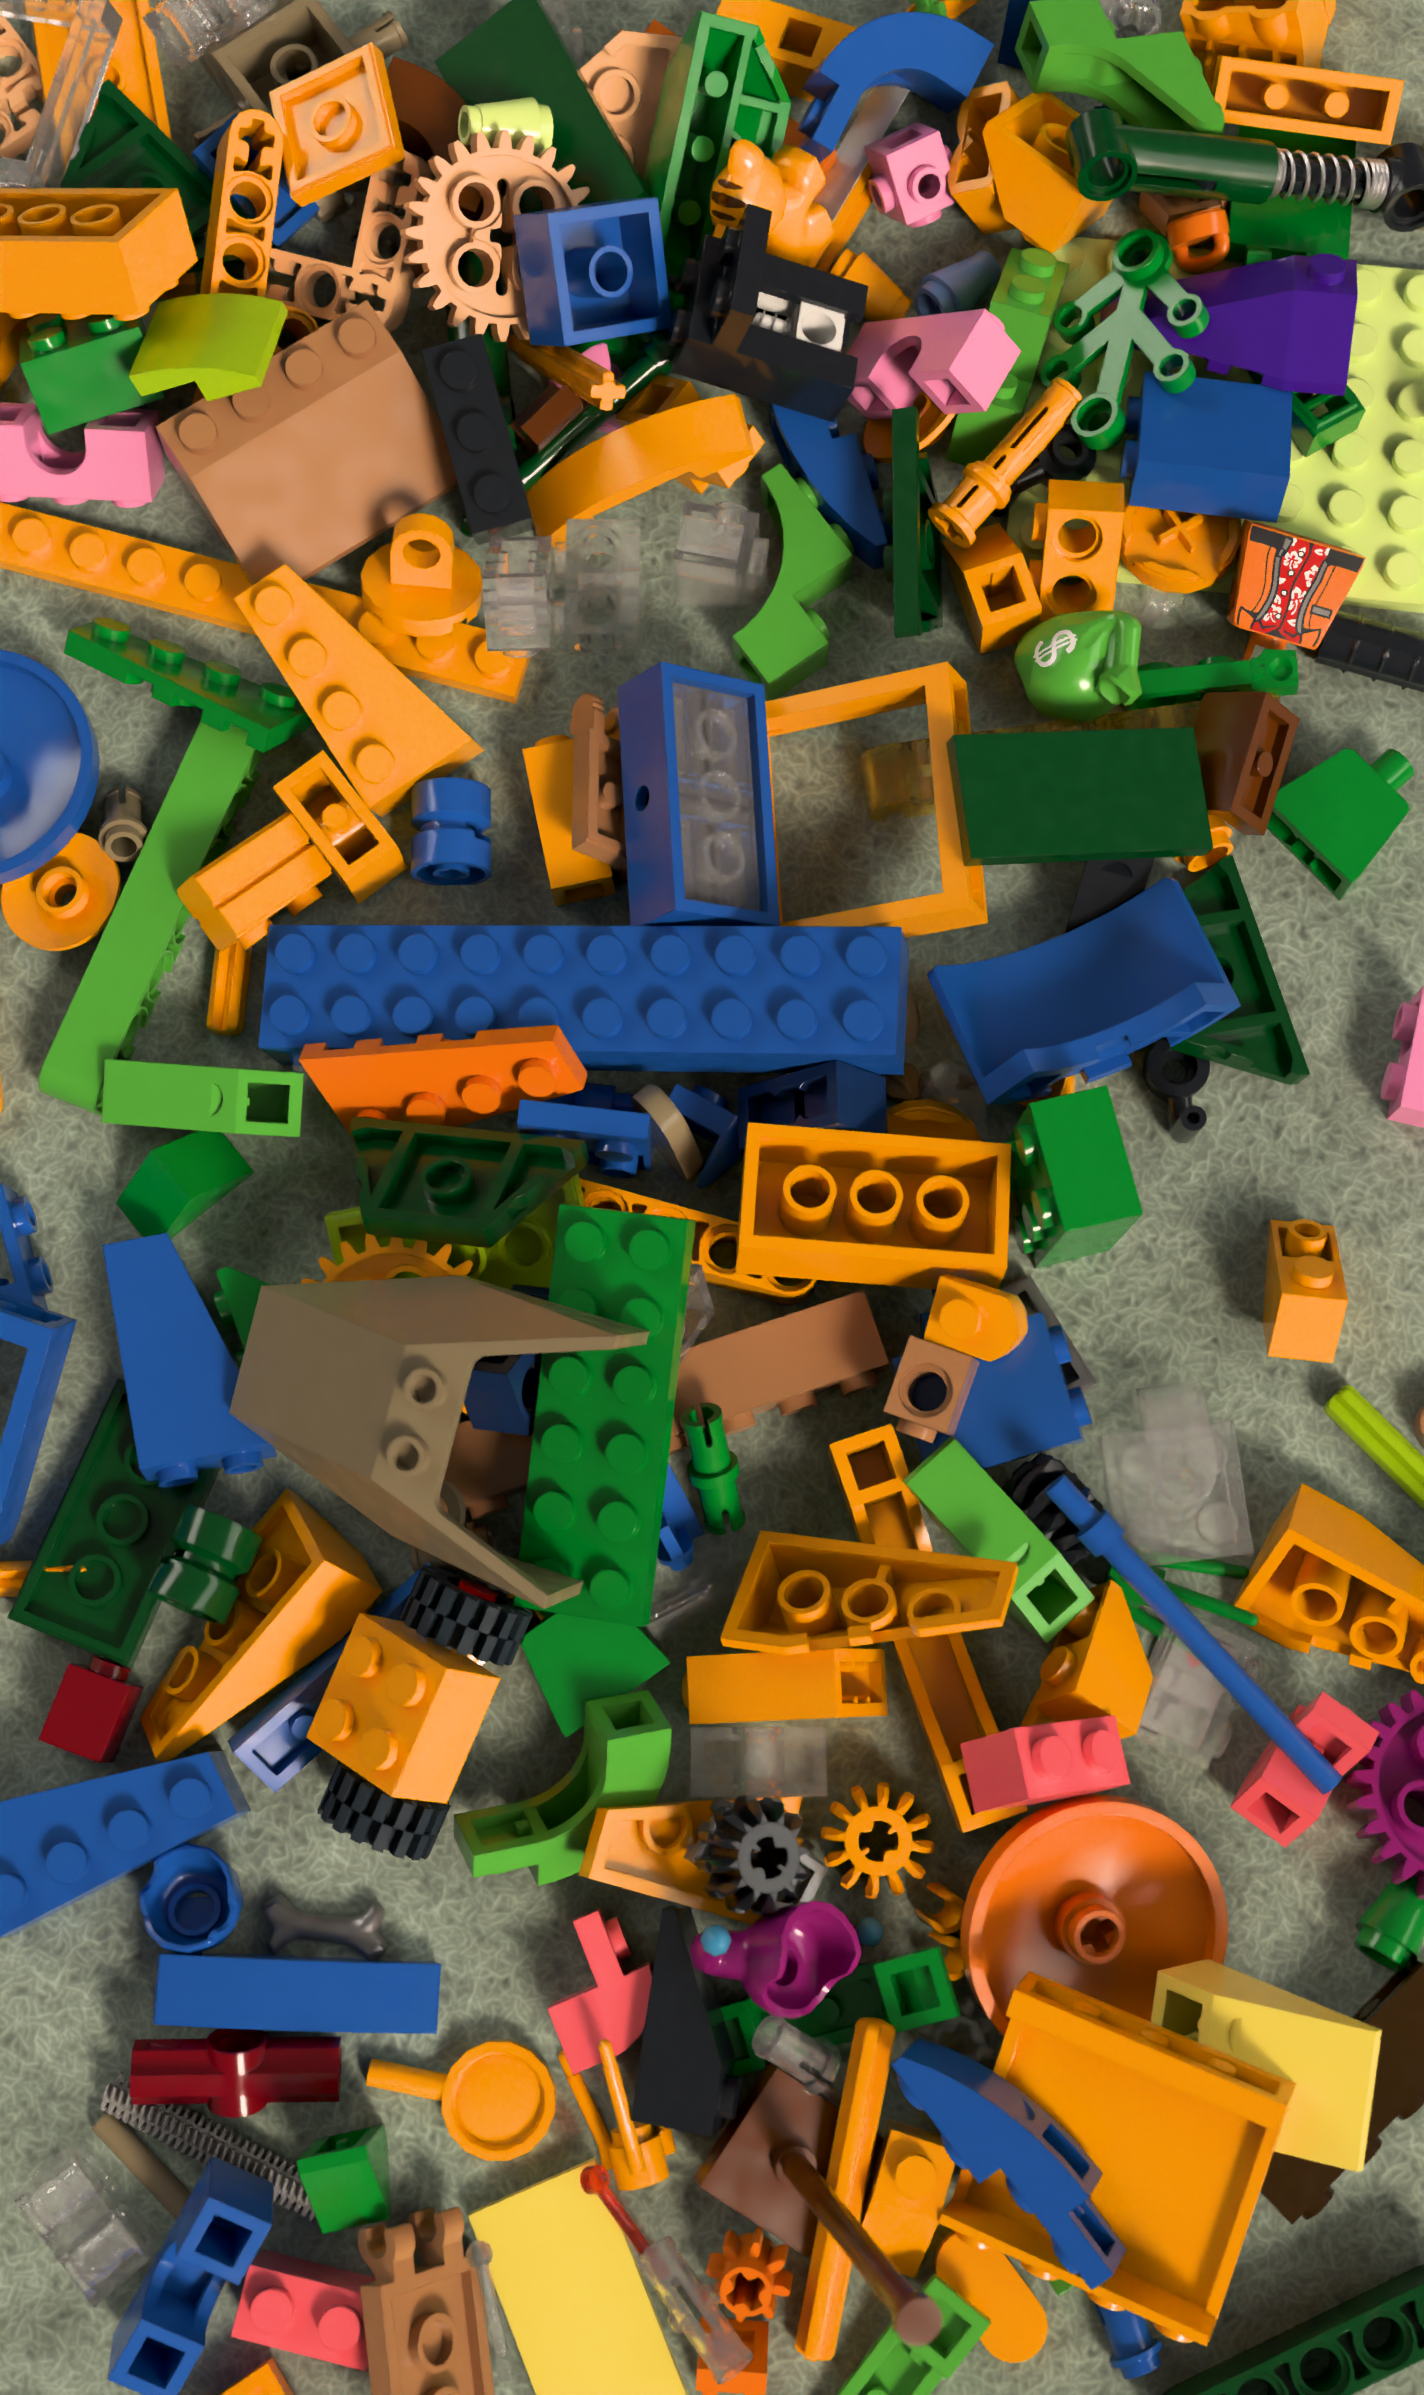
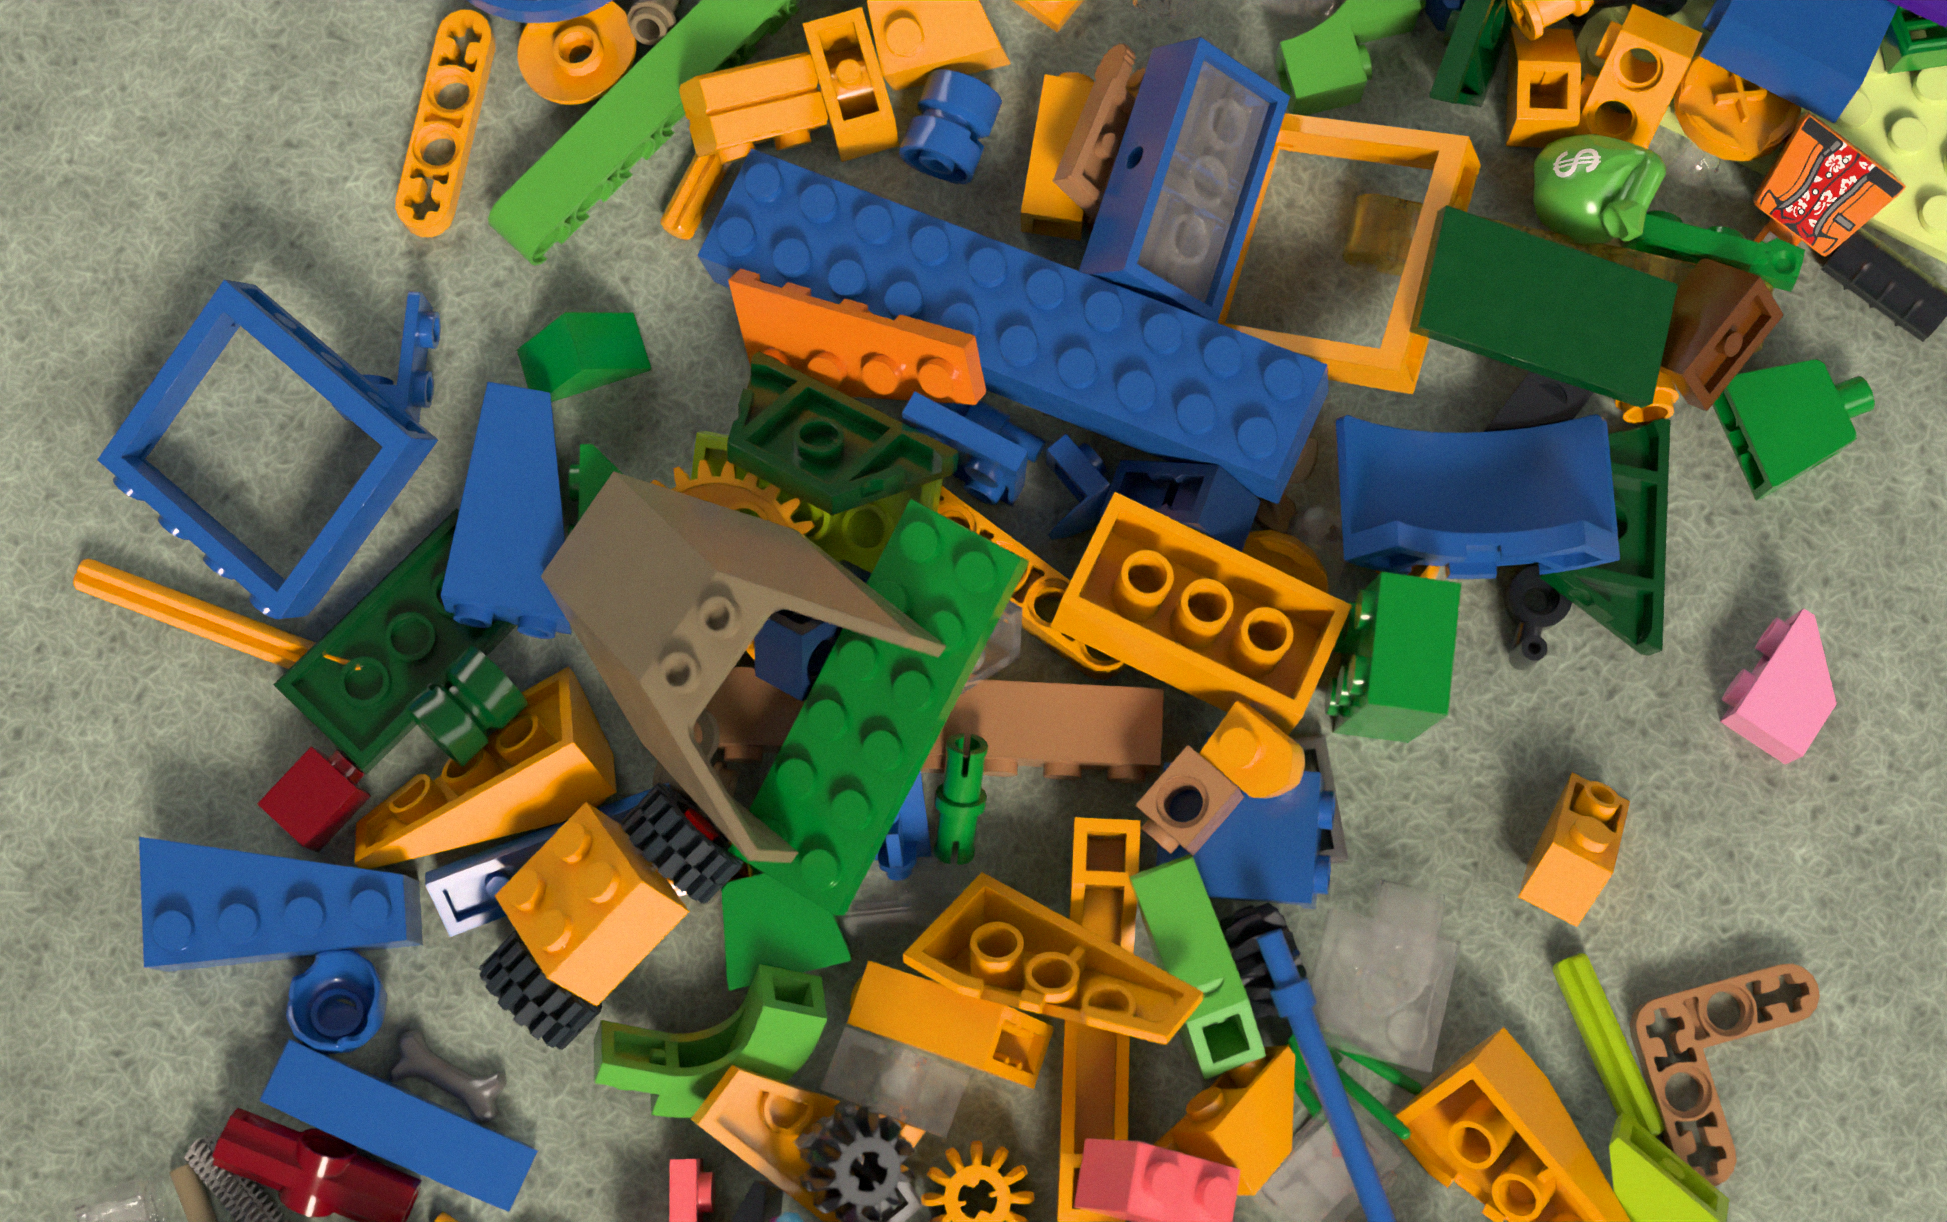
camera: 20 degrees right, 0 degrees up
(203, 1097) = (629, 283): bright green slope -> none
(670, 1132) = (1042, 475): dark tan tile -> none

